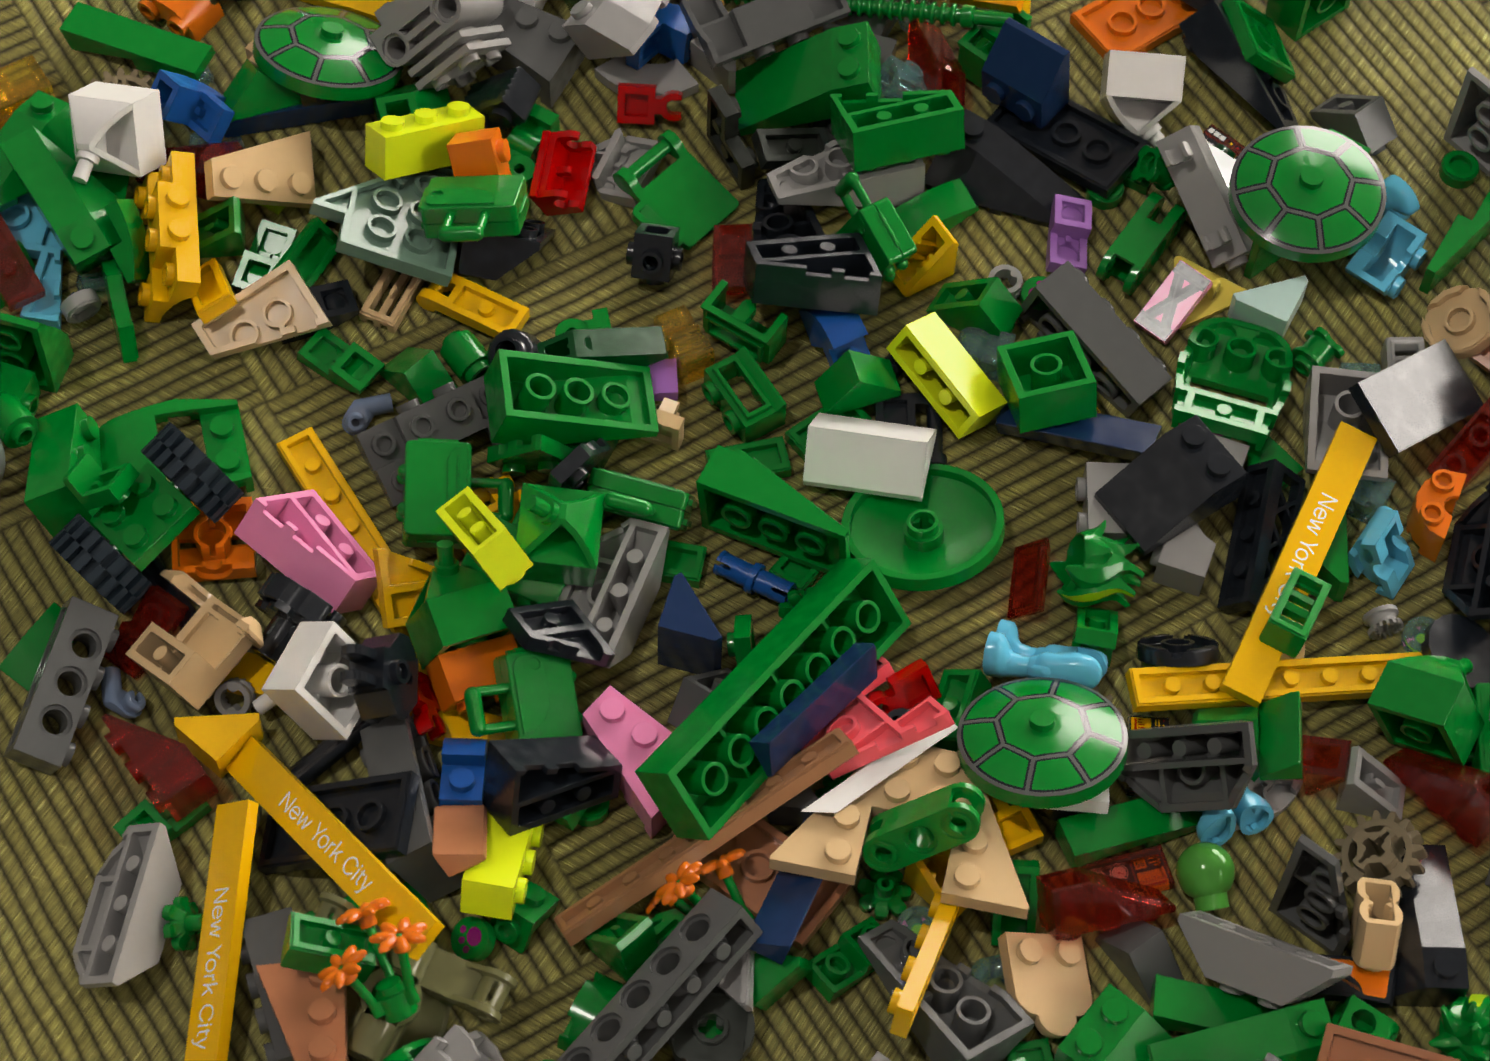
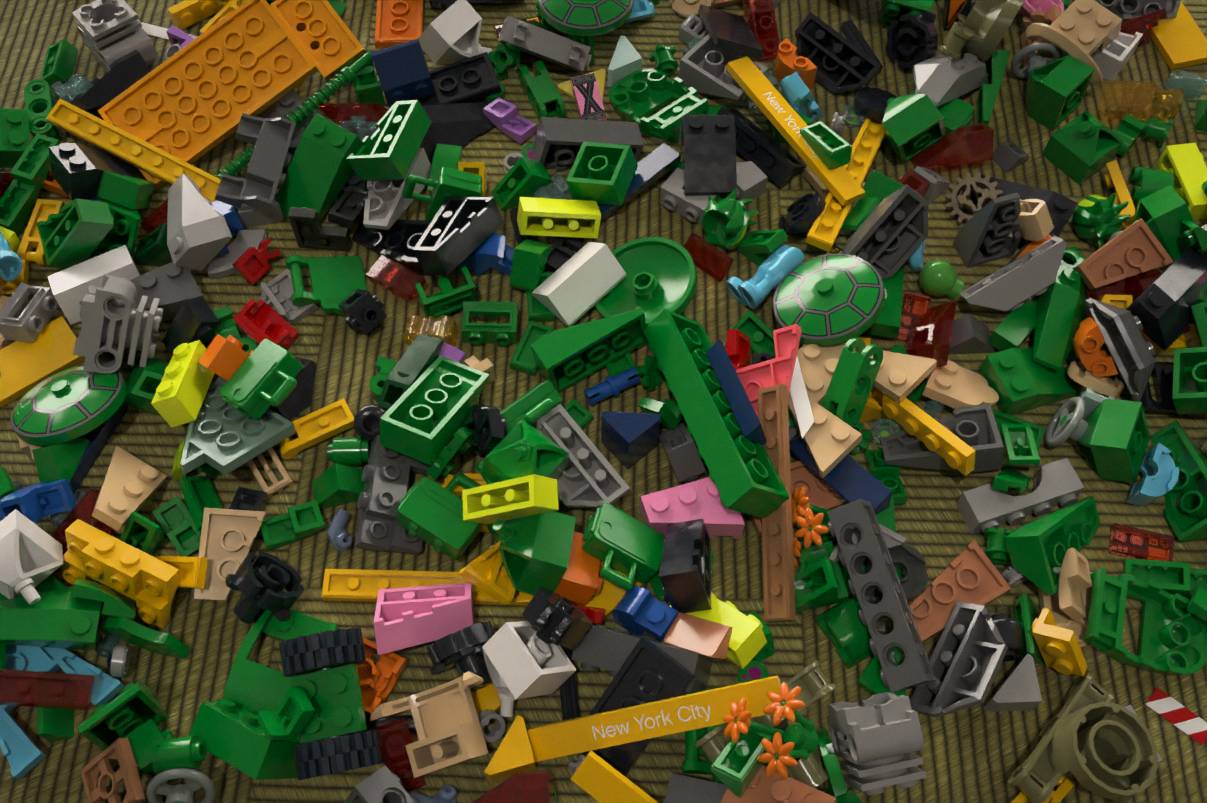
camera: 55 degrees left, 0 degrees up
(238, 380) = (262, 584): none -> black piece
(558, 631) = (596, 499): black wing -> none

